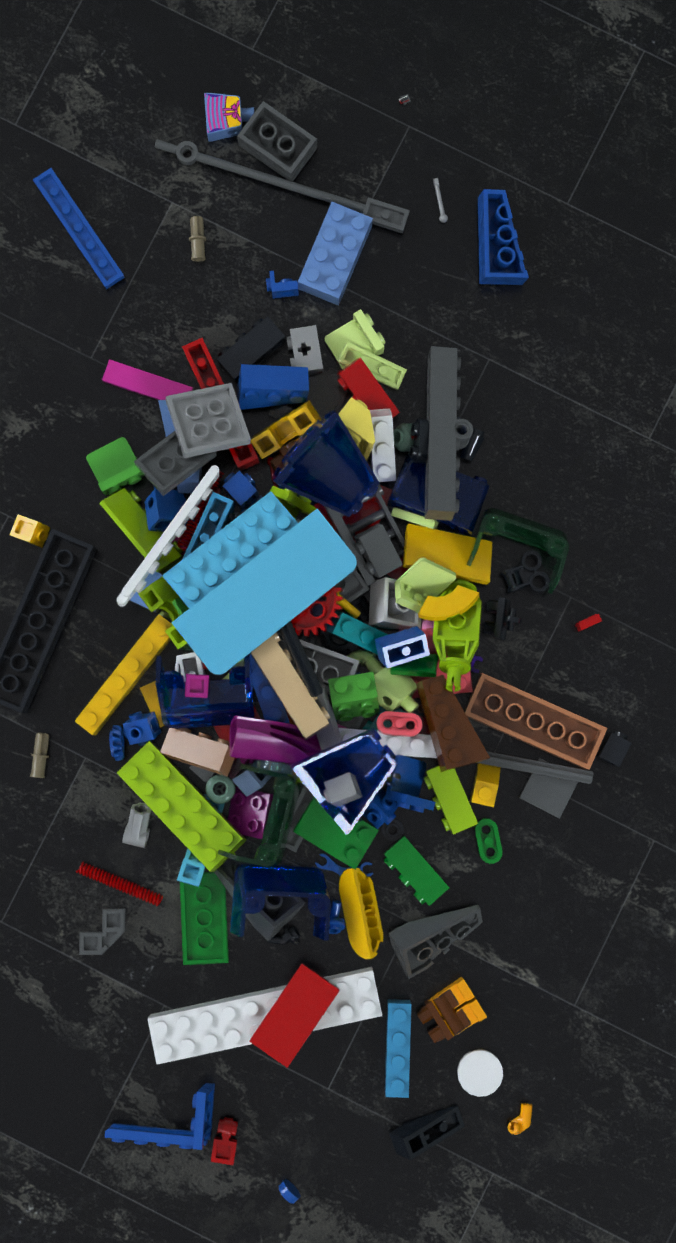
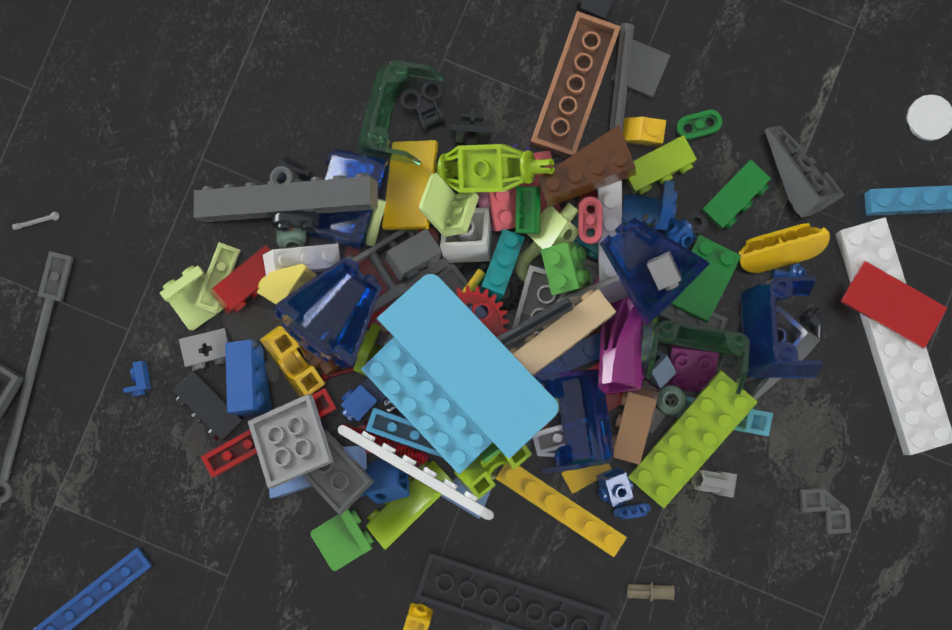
camera: 90 degrees left, 0 degrees up
(137, 893) = (775, 493): red piece -> none
(141, 381) = (250, 516): dark pink tile -> none
(196, 686) = (568, 431): dark pink tile -> none
(197, 238) = (92, 472): dark tan axle -> none
(204, 921) = (806, 406): green tile -> none
(332, 866) = (738, 280): blue piece -> none
(335, 253) = (100, 325): medium blue brick -> none
(402, 647) = (512, 222): blue brick -> none
(449, 605) = (465, 177): yellow tile -> none
(452, 1009) = (871, 148): hips -> none
(498, 245) = (77, 157): blue wedge -> none
(592, 620) = (469, 39): red tile -> none

